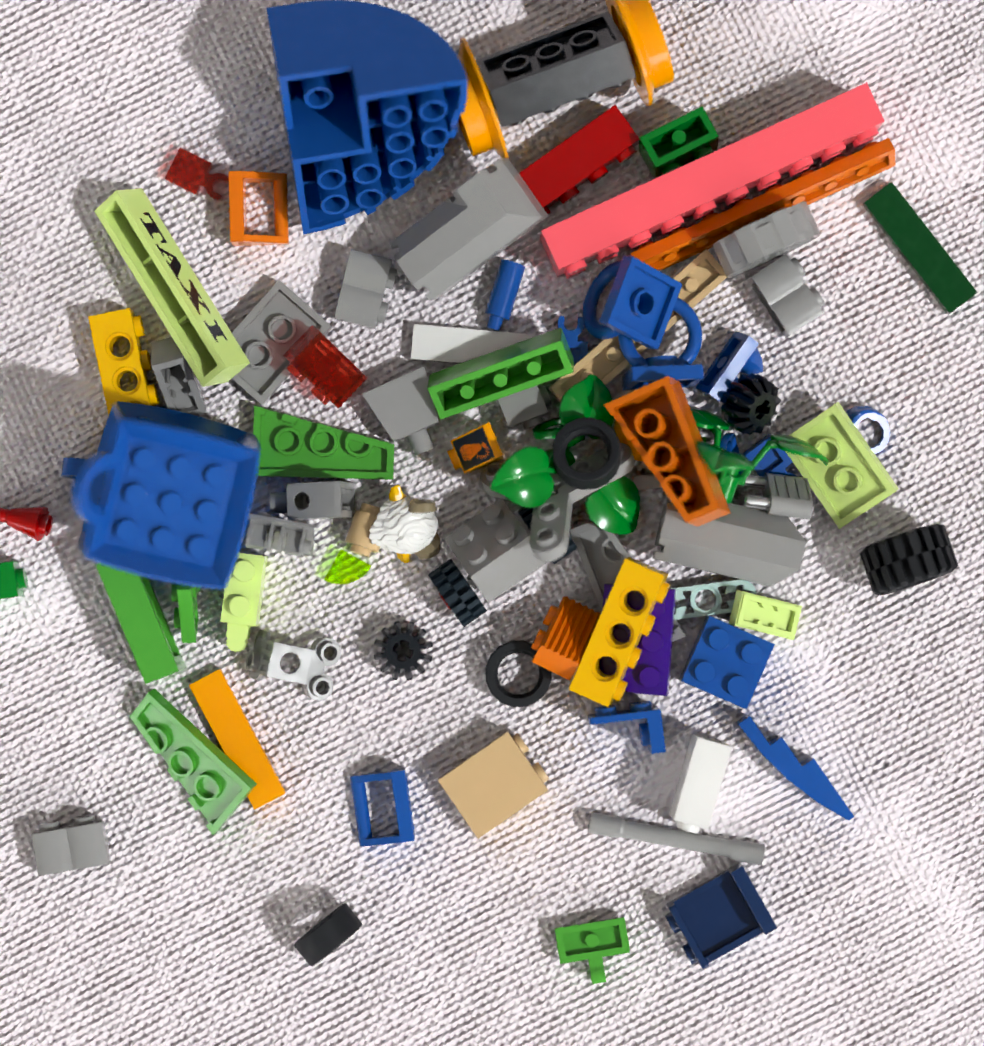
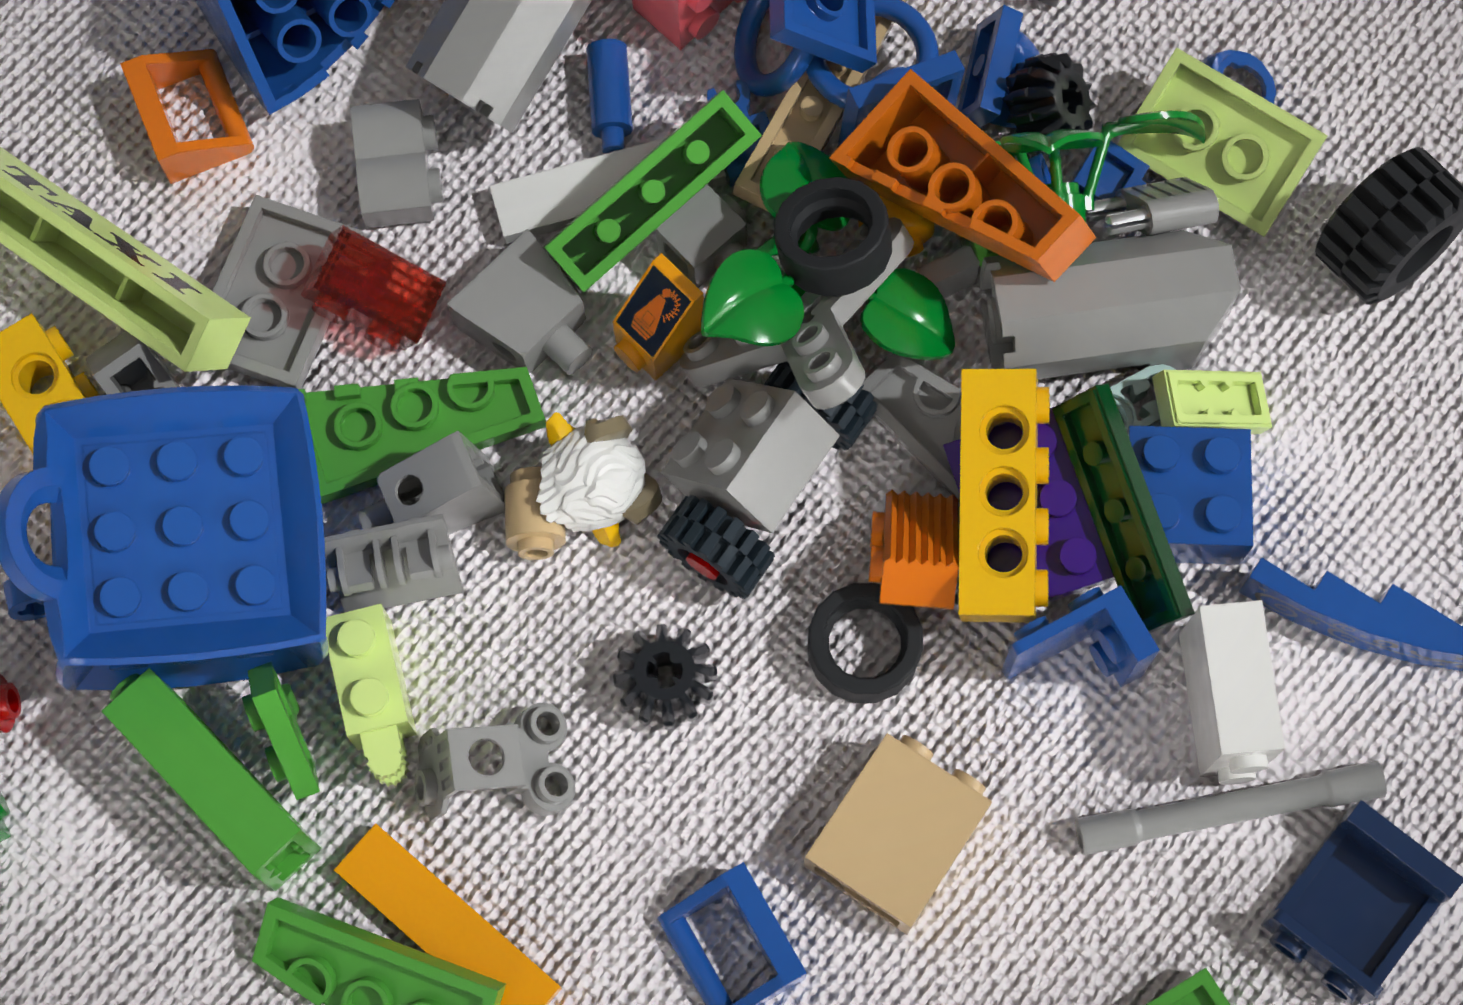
camera: 20 degrees left, 15 degrees down
(192, 174) = (72, 100): clear red plate -> none
(346, 569) = (525, 588): clear neon green tile -> none
(682, 664) = (1122, 507): none -> dark green tile

